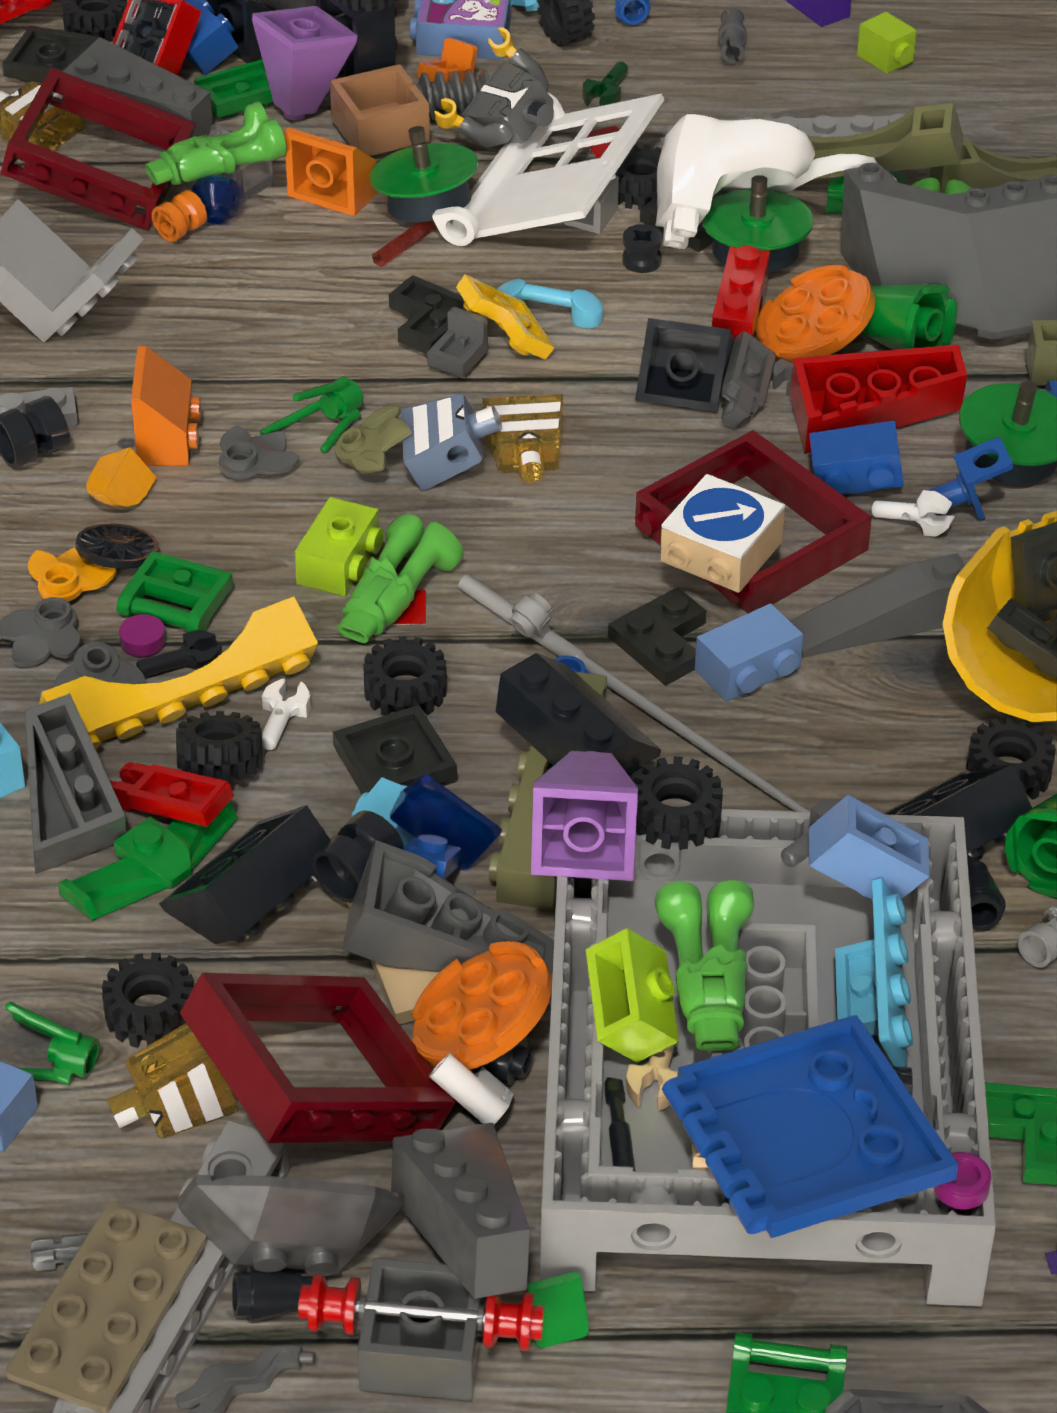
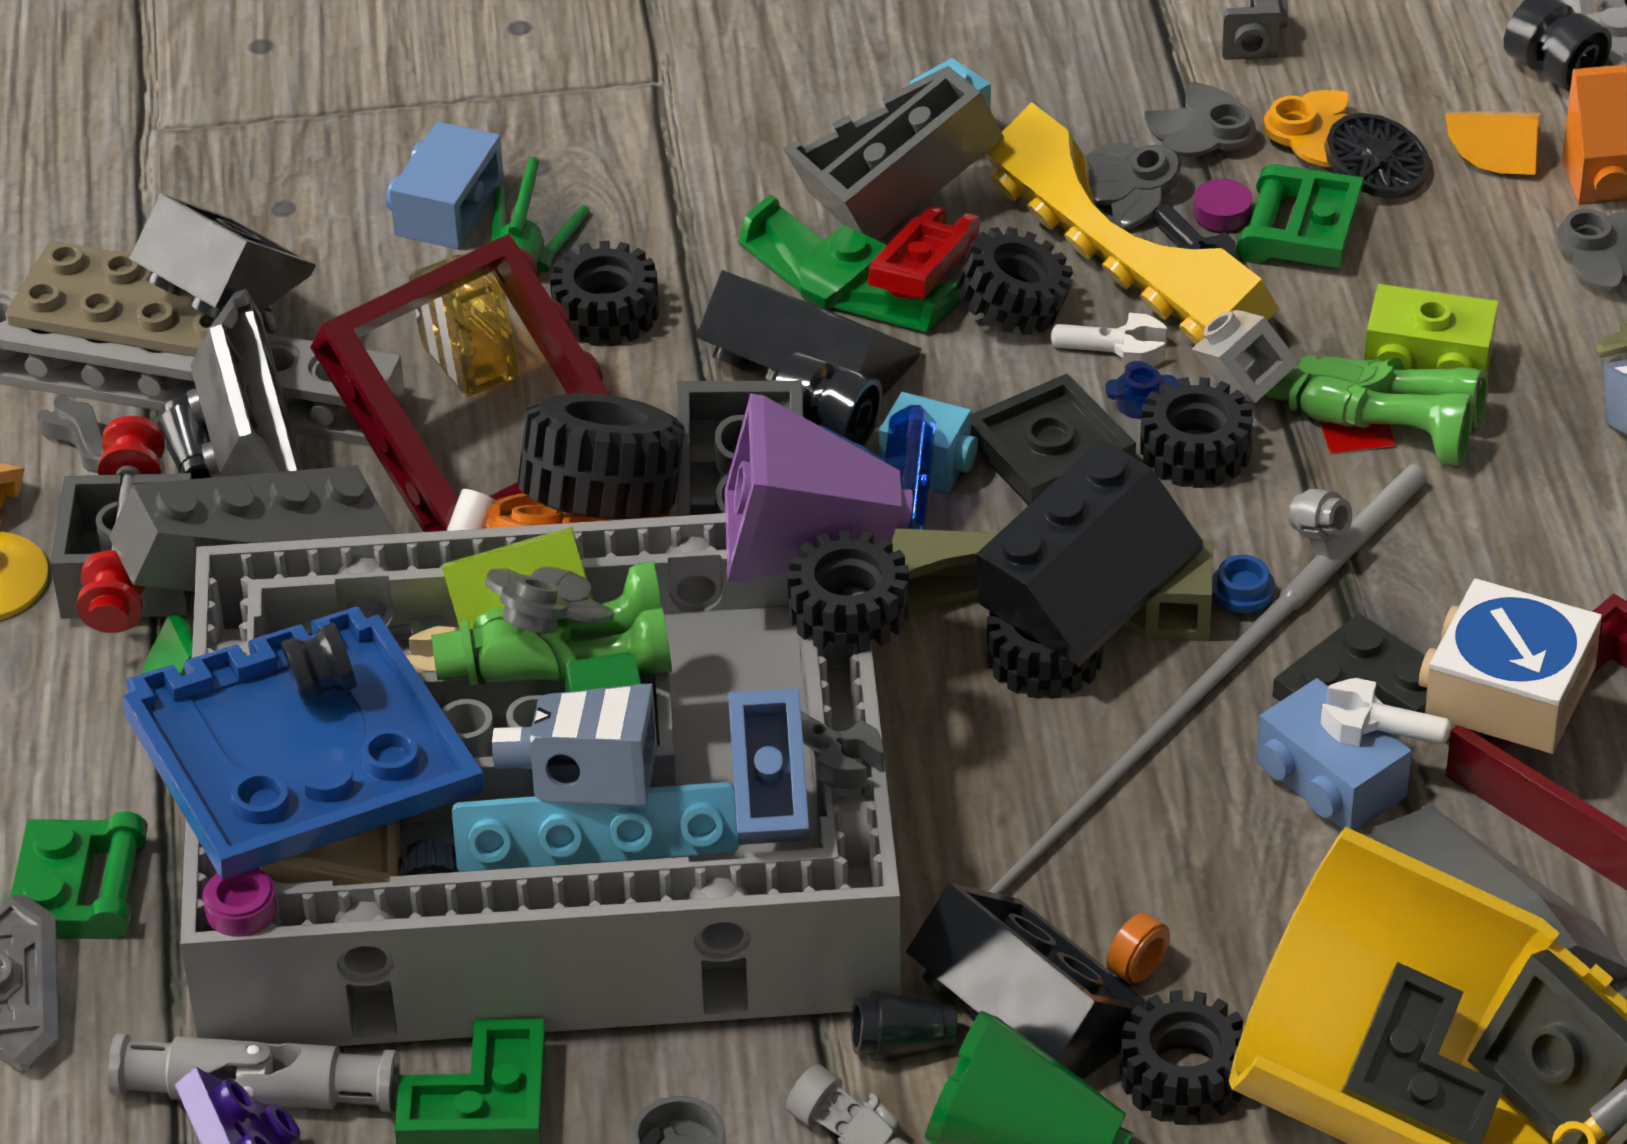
camera: 85 degrees right, 0 degrees up
(119, 1213) = (214, 257): none -> slope
(346, 703) = (1134, 387): none -> clear blue plate
(349, 630) = (1244, 353): none -> light grey brick
(437, 968) = (600, 456): none -> black tyre
(687, 951) = (545, 597): none -> dark grey plate
(746, 609) = (1356, 711): none -> white bar
(754, 1092) = (319, 664): none -> black wheel
(768, 940) = (602, 672): none -> green slope
(846, 943) = (586, 746): none -> sand blue torso
(917, 767) = (1138, 948): none -> orange tile
(1008, 1291) = (269, 1073): none -> light grey piece

